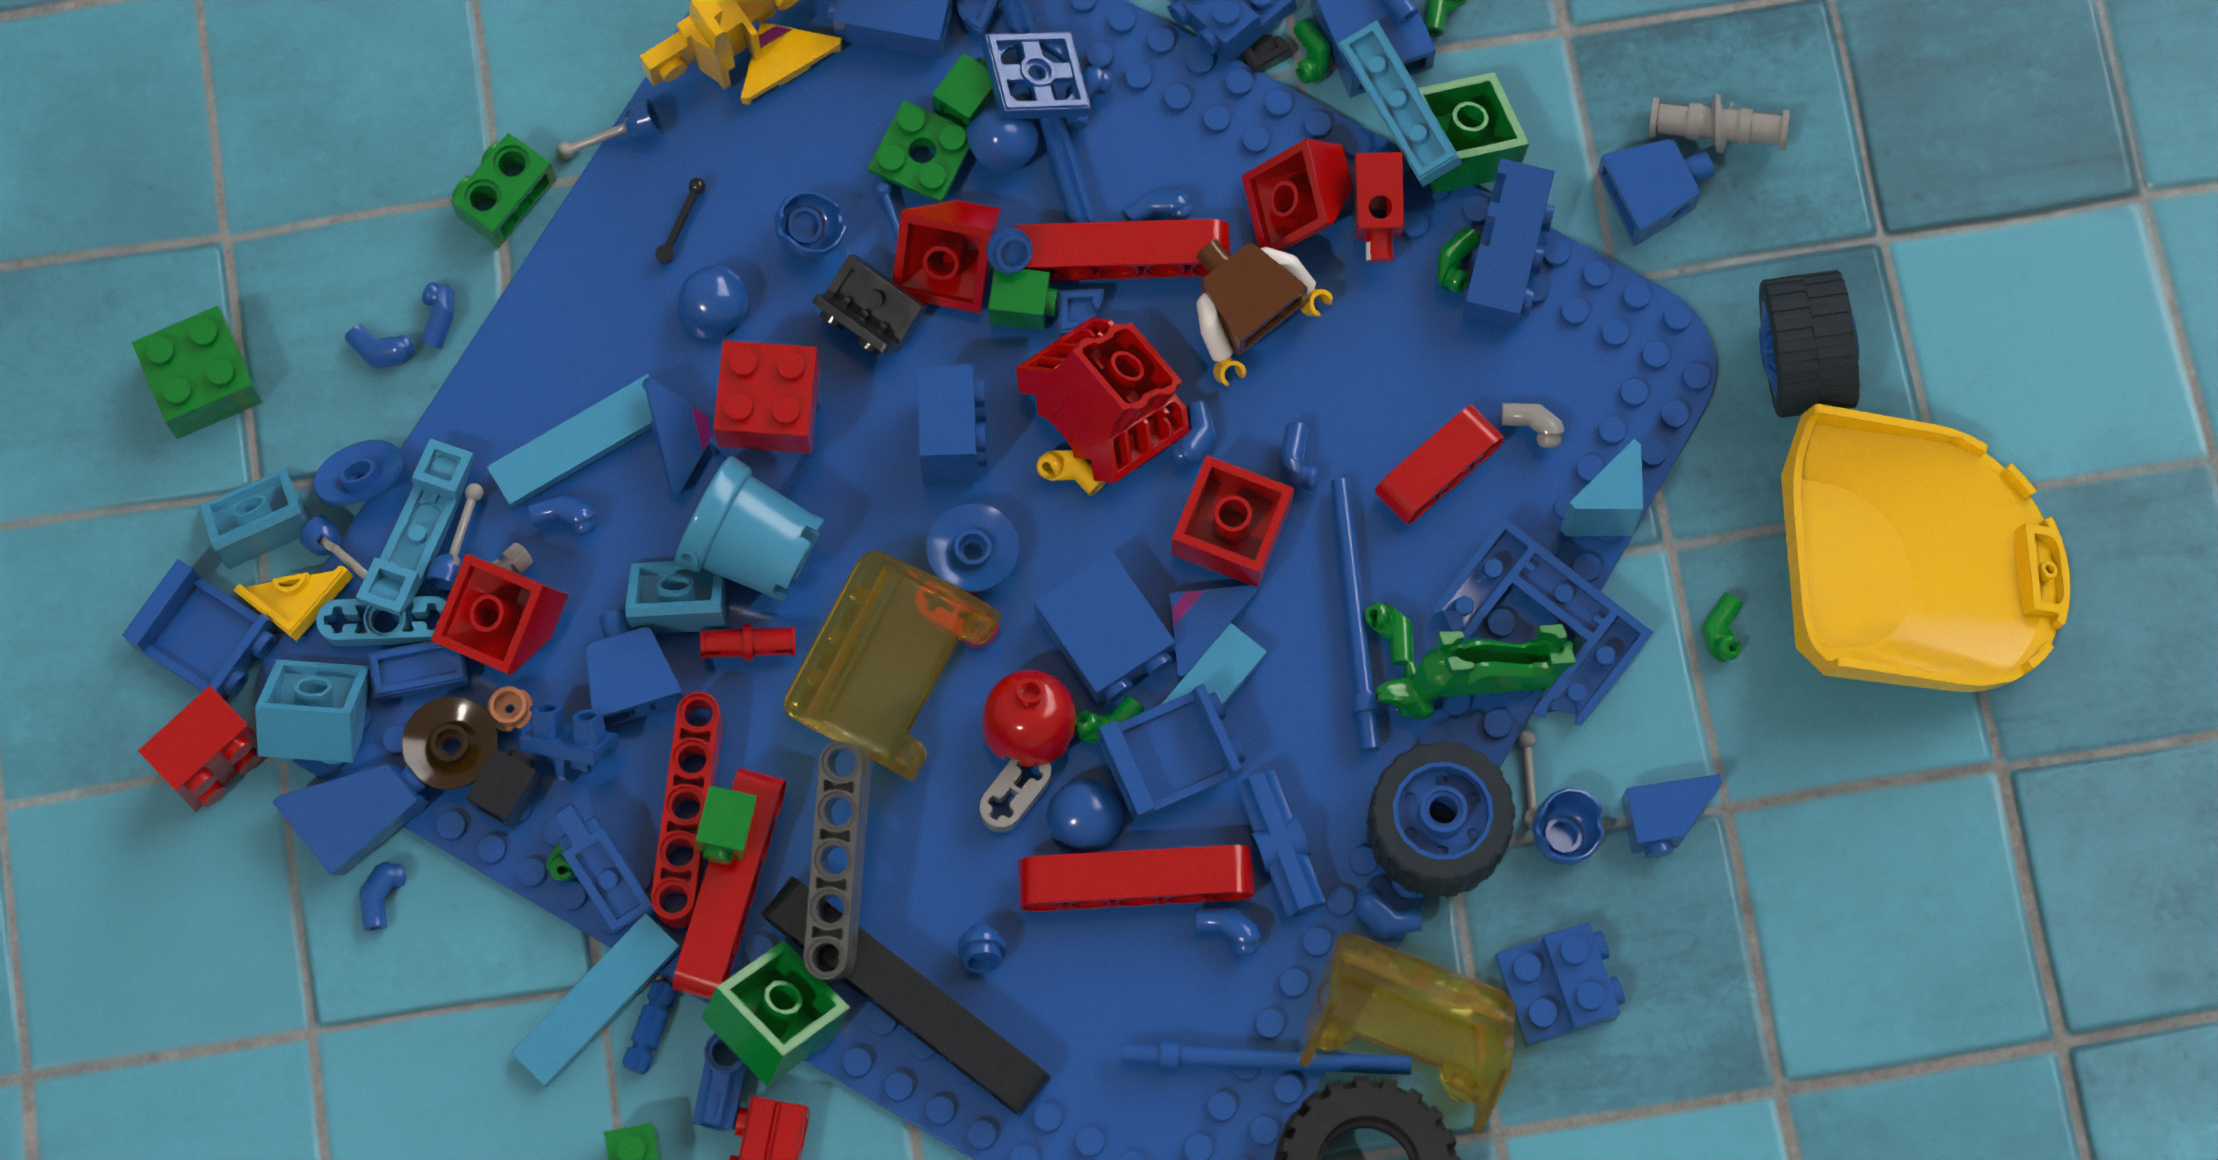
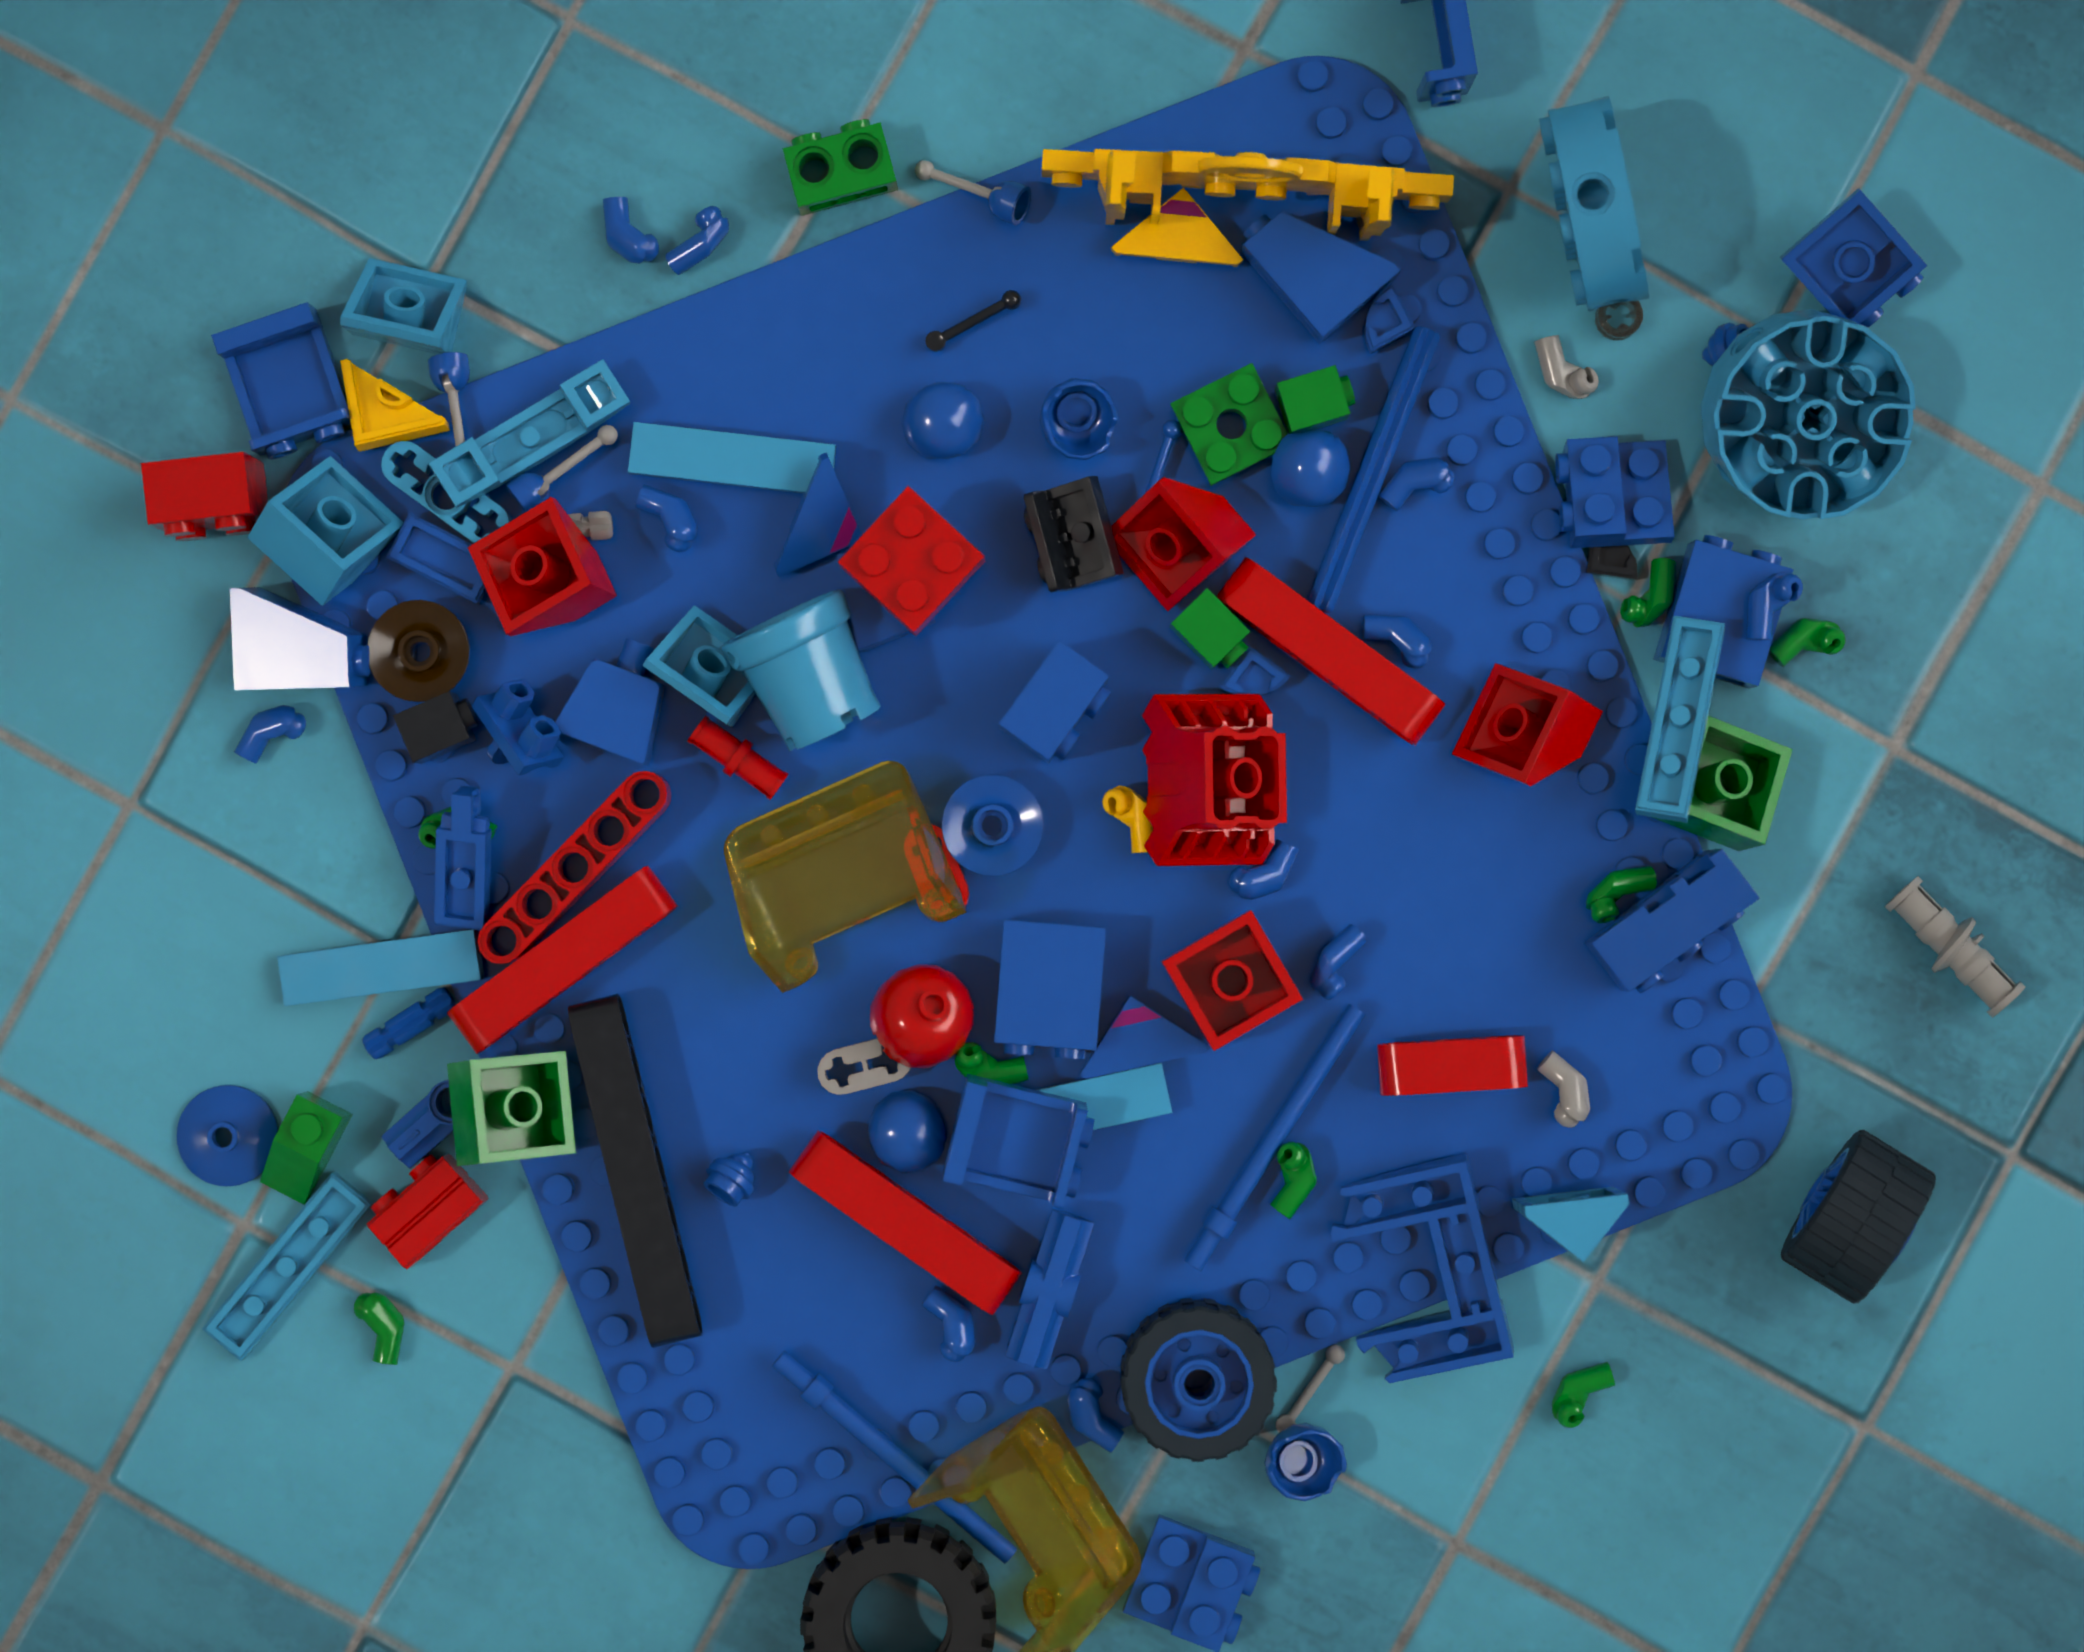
camera: 35 degrees right, 15 degrees up
(196, 372) = (449, 135): green brick -> none
(357, 472) = (521, 338): blue dish -> none
(508, 696) = (481, 650): nougat plate -> none
(725, 824) = (587, 918): green brick -> none
(823, 881) = (633, 1035): dark grey beam -> none
(1009, 250) = (1228, 587): blue plate -> none
(1044, 106) = (1429, 426): blue piece -> none
(1249, 298) = (1404, 792): reddish brown torso -> none
(1378, 186) = (1599, 772): red torso -> none
(1478, 668) = (1336, 1275): green animal -> none
(1653, 185) = (1850, 956): blue torso -> none
(1664, 812) = (1399, 1514): blue slope -> none
(1916, 555) = (1791, 1473): yellow windscreen -> none

